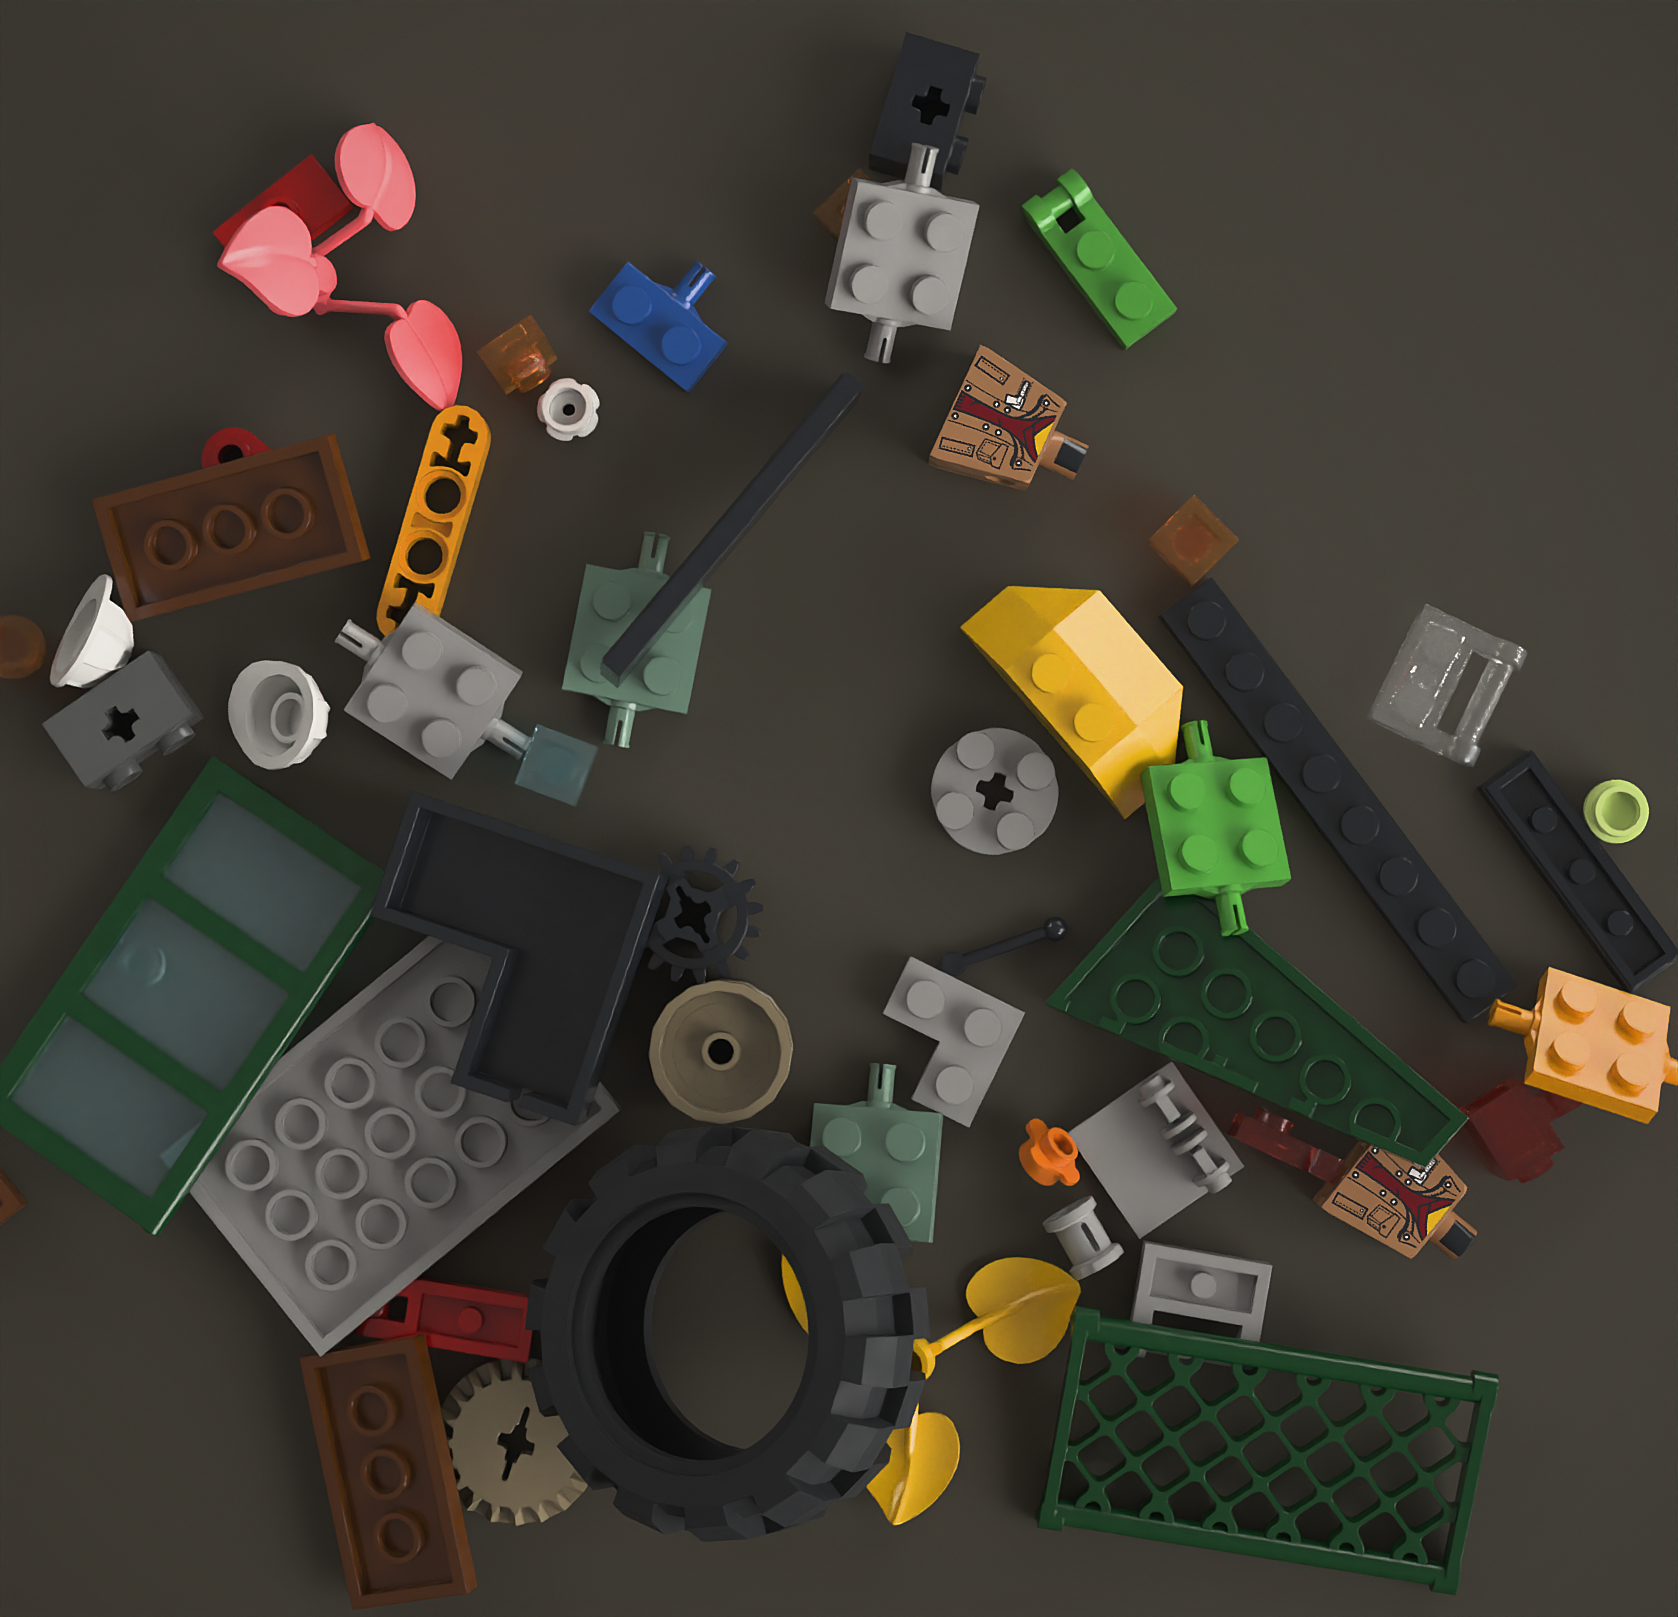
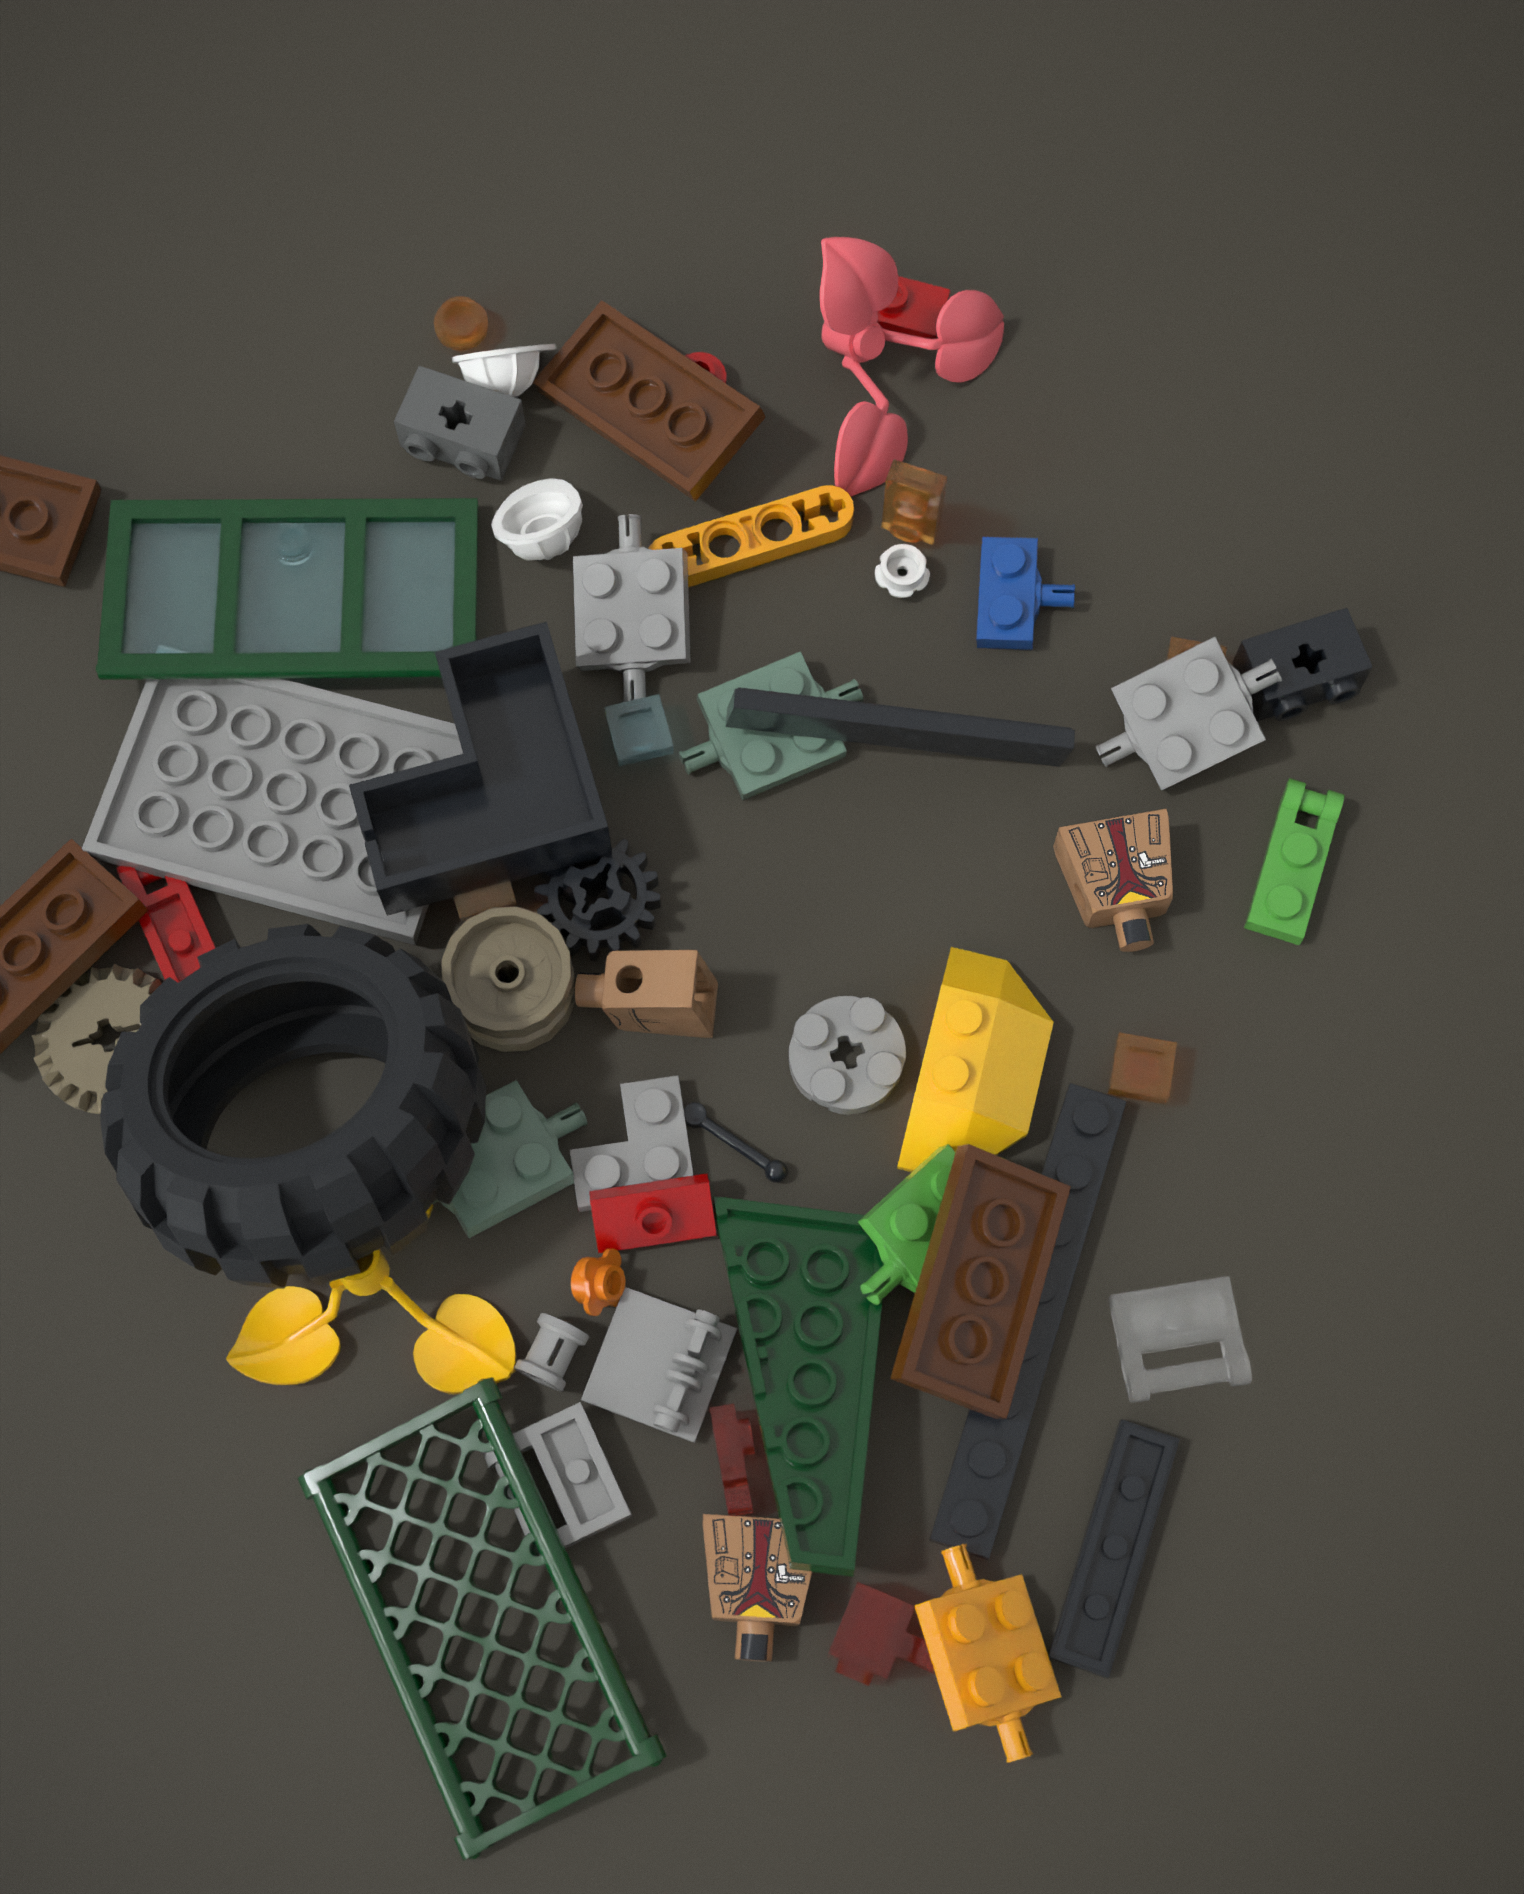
camera: 50 degrees right, 15 degrees down
(635, 1022) = (484, 898): none -> clear orange plate
(835, 913) = (653, 992): none -> medium nougat torso
(1021, 1065) = (652, 1213): none -> red plate
(1294, 829) = (981, 1282): none -> reddish brown plate
(1616, 811) = (1181, 1541): yellowish green plate -> none

